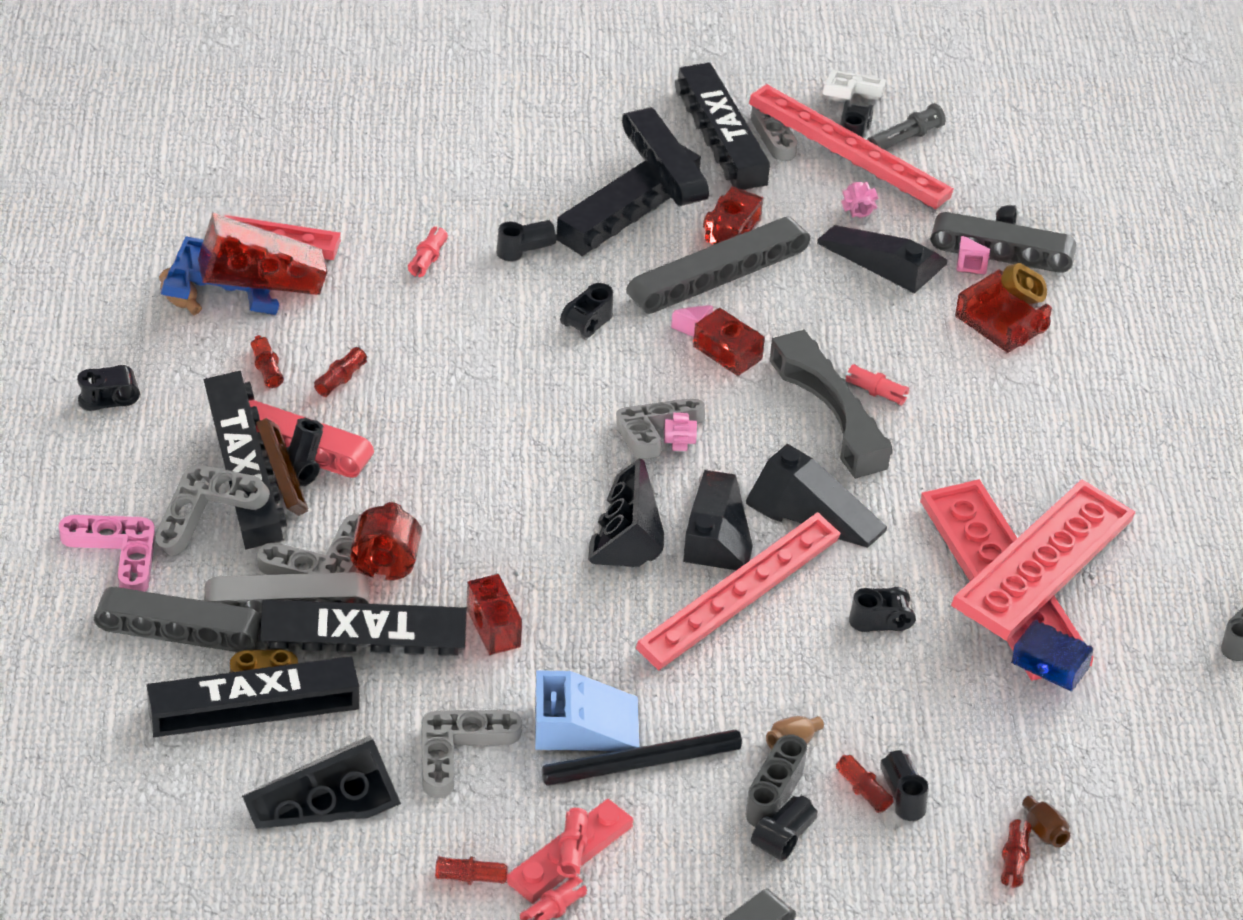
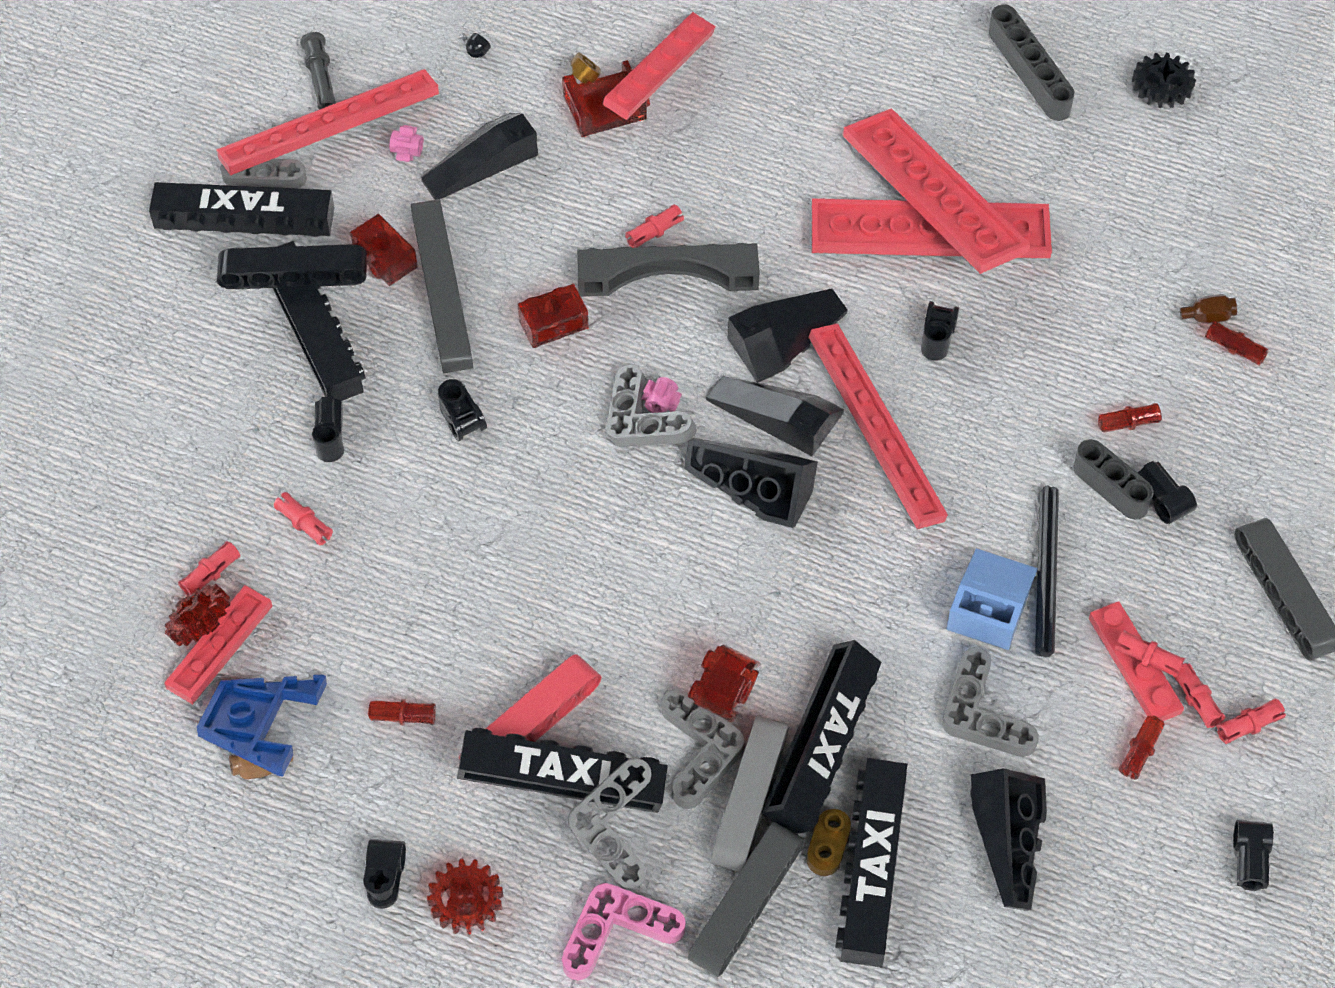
camera: 65 degrees left, 15 degrees up
(104, 442) = (465, 911): none -> clear red gear
(258, 258) = (273, 669): clear red wedge -> none
(282, 467) = (589, 739): reddish brown tile -> none
(293, 210) = (197, 615): none -> clear red gear
(304, 449) = (570, 719): black piece -> none
(334, 209) = (209, 568): none -> coral pin
(340, 371) = (449, 650): clear red pin -> none
(494, 614) = (841, 622): clear red brick -> none
(685, 319) = (504, 333): bright pink slope -> none
(794, 725) = (1057, 447): medium nougat plant -> none
(843, 85) = (238, 87): white plate -> none
(857, 118) = (287, 102): black piece -> none
(906, 785) = (1145, 388): black piece -> none
(972, 256) = (521, 92): bright pink slope -> none
(1006, 241) = (512, 62): dark grey beam -> none
(1052, 655) = (1053, 227): clear blue brick -> none
(1062, 330) = (659, 65): none -> coral plate

